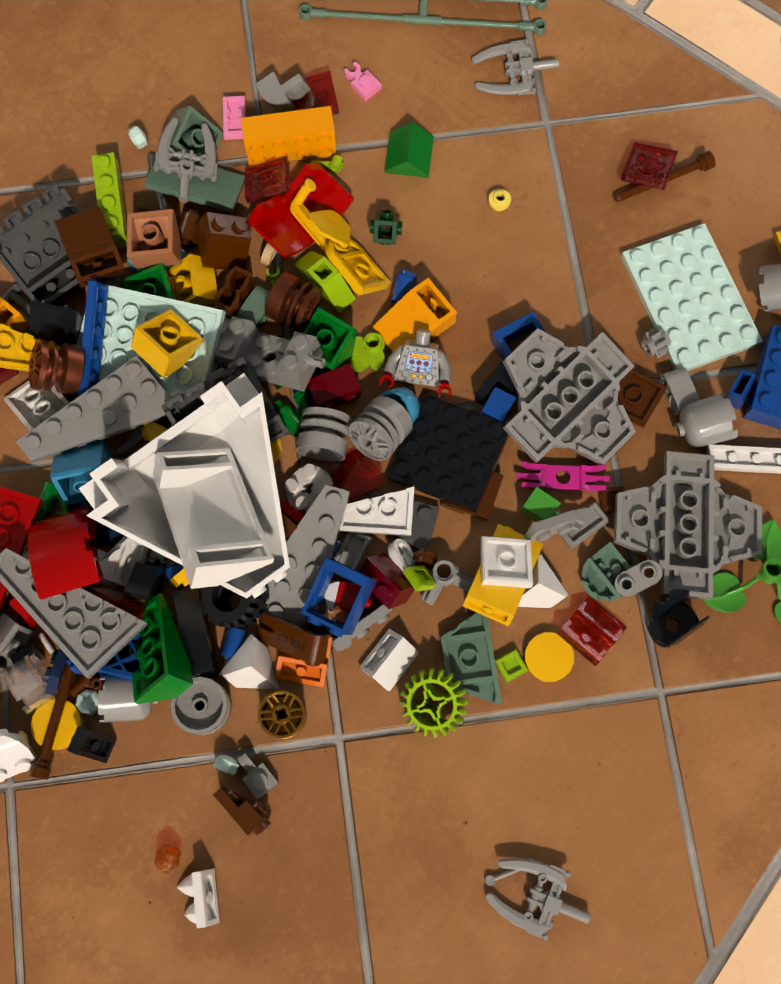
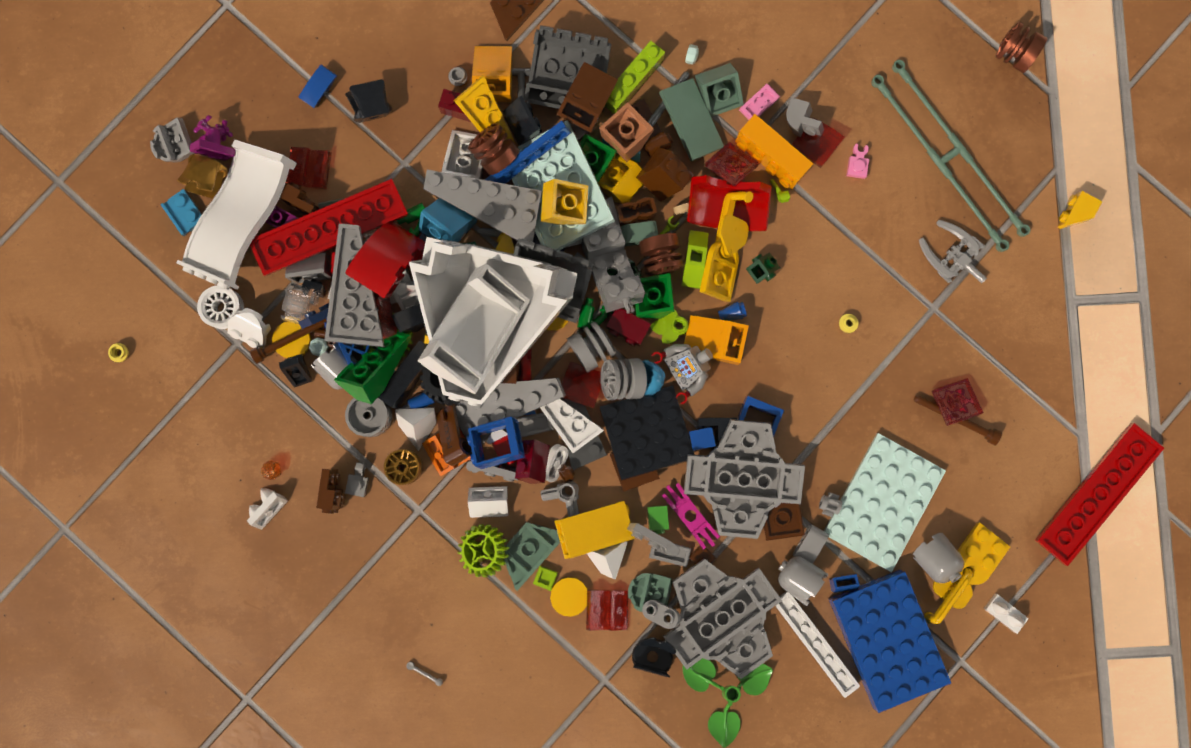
camera: 50 degrees right, 10 degrees up
(185, 166) = (693, 106): light grey bar -> none
(226, 764) = (348, 458): light aqua tile -> none
(300, 480) = (546, 357): white plate -> none
(409, 151) = (832, 236): green slope -> none
(419, 578) = (550, 481): lime tile -> none
(506, 562) = (601, 526): white tile -> none
(548, 901) = (425, 710): light grey bar -> none

